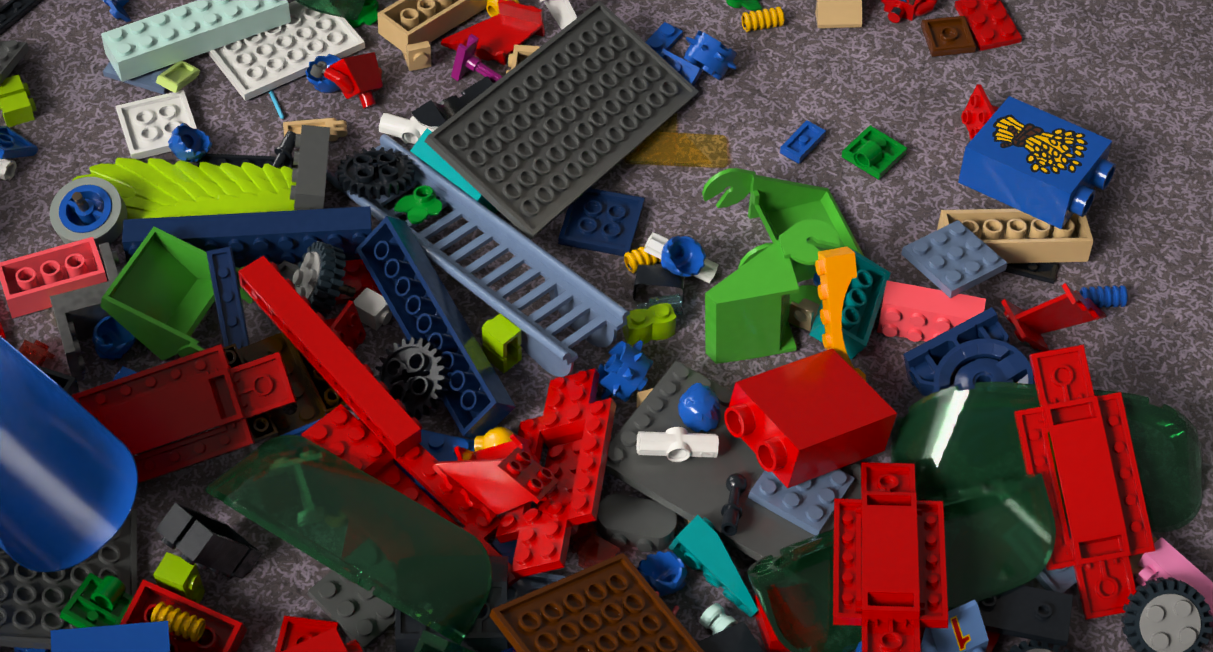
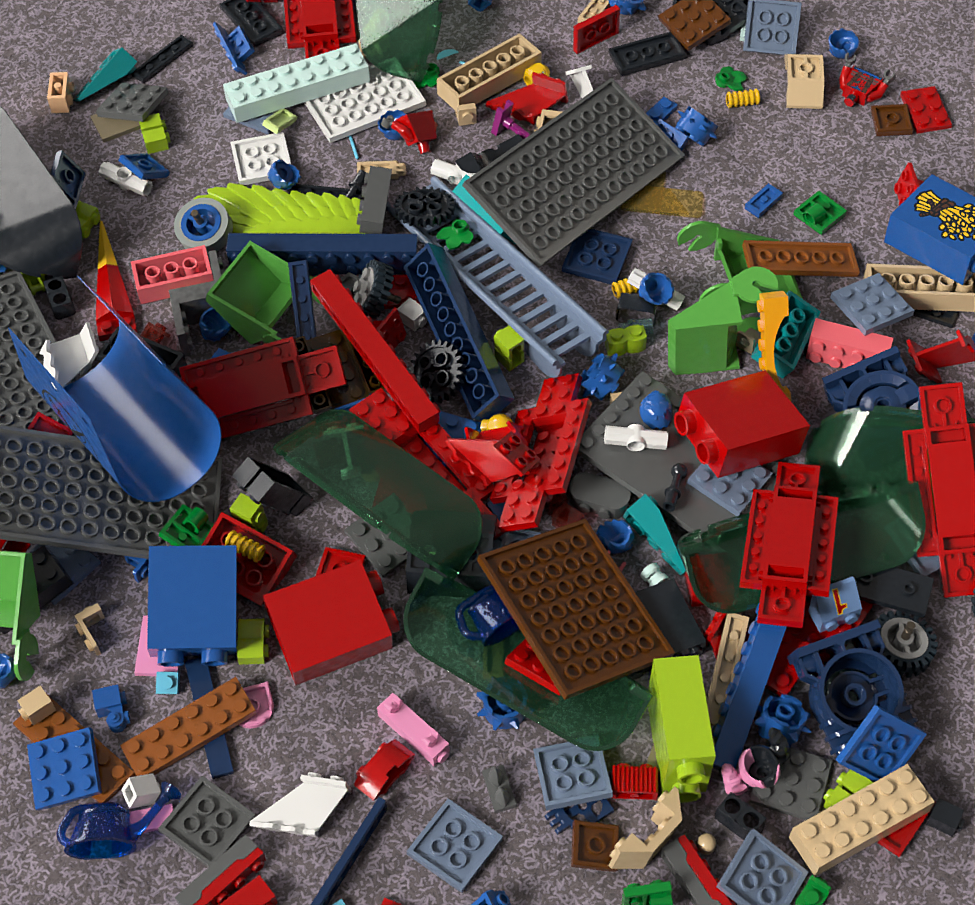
camera: 10 degrees right, 5 degrees up
(860, 208) = (802, 258): none -> dark orange plate

